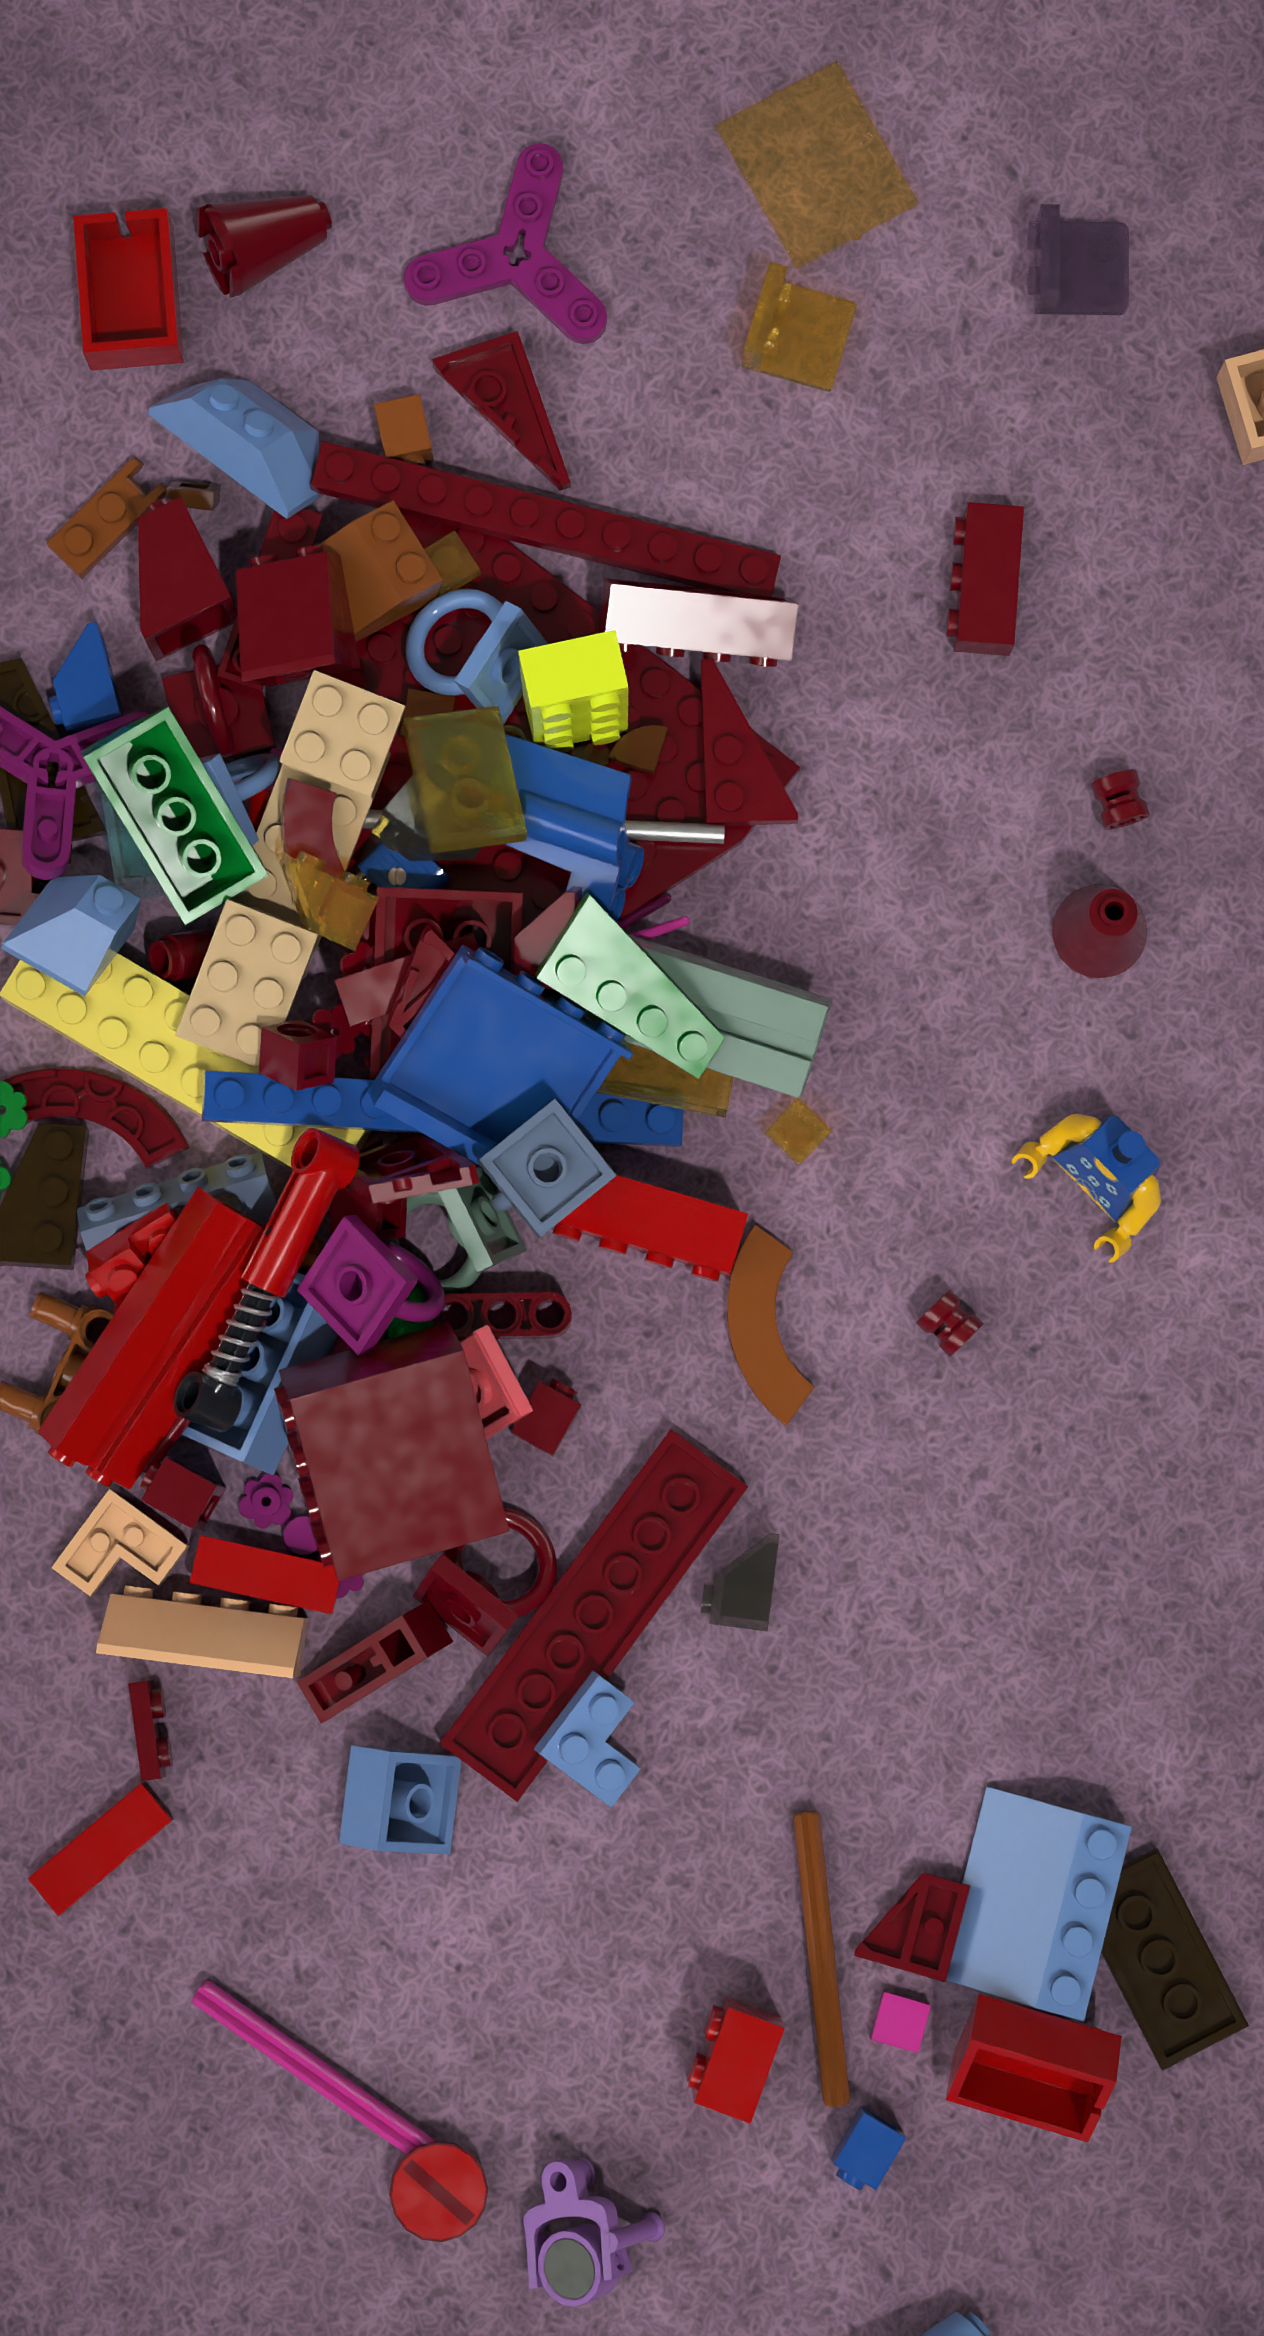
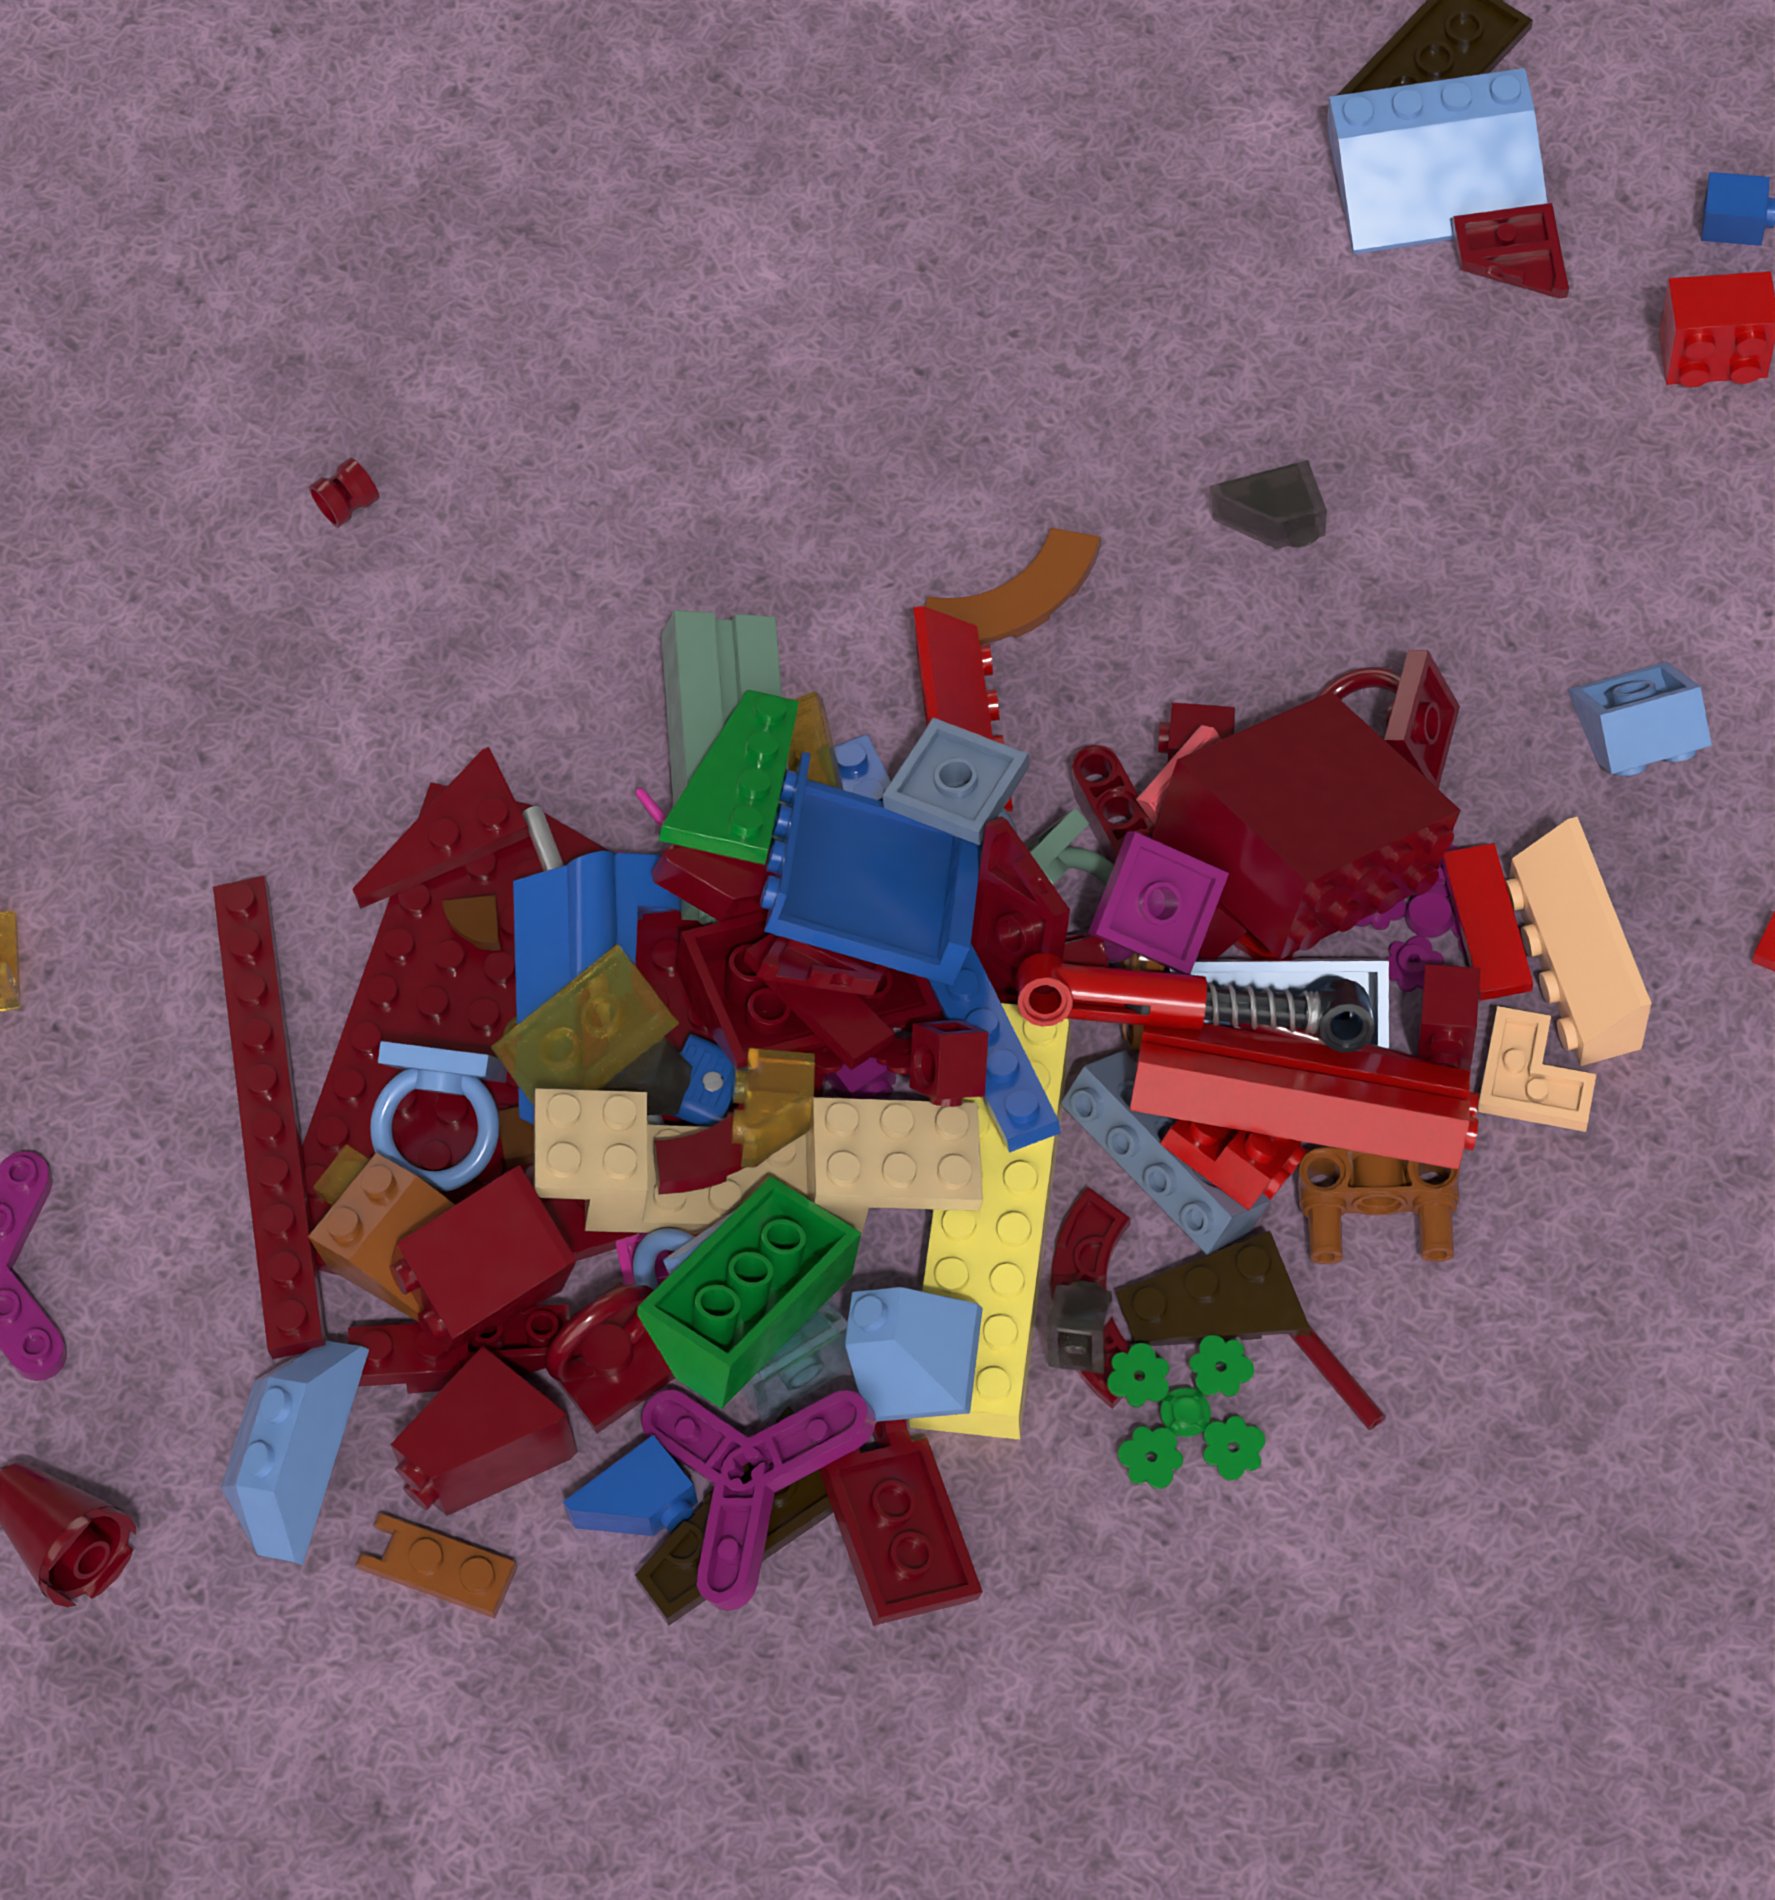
camera: 105 degrees left, 20 degrees down
(53, 1076) = (1079, 1327): none -> clear smoke slope
(128, 290) = (166, 1637): red piece -> none
(152, 1750) = (1712, 957): dark red plate -> none
(179, 954) = (888, 1261): dark red brick -> none
(195, 494) = (377, 1477): reddish brown tile -> none
(374, 1661) = (1511, 783): dark red slope -> none
(404, 430) = (222, 1294): dark orange brick -> none
(503, 391) = (135, 1219): dark red wing -> none
(575, 691) = (450, 951): neon yellow brick -> none
(579, 1738) = (1496, 582): medium blue plate -> none
(595, 1610) = (1368, 620): dark red plate -> none
(699, 620) = (317, 919): brick -> none
(798, 1132) = (807, 638): clear yellow plate -> none
(821, 1959) = (1582, 318): dark orange axle -> none
(900, 2021) = (1607, 235): dark pink tile -> none
(949, 1323) = (933, 434): dark red wheel -> none
(986, 578) = (163, 690): dark red brick -> none
(1034, 2068) = (1588, 96): red piece -> none
(1099, 931) = (480, 454): dark red cone -> none
(1108, 1165) = (715, 359): torso -> none

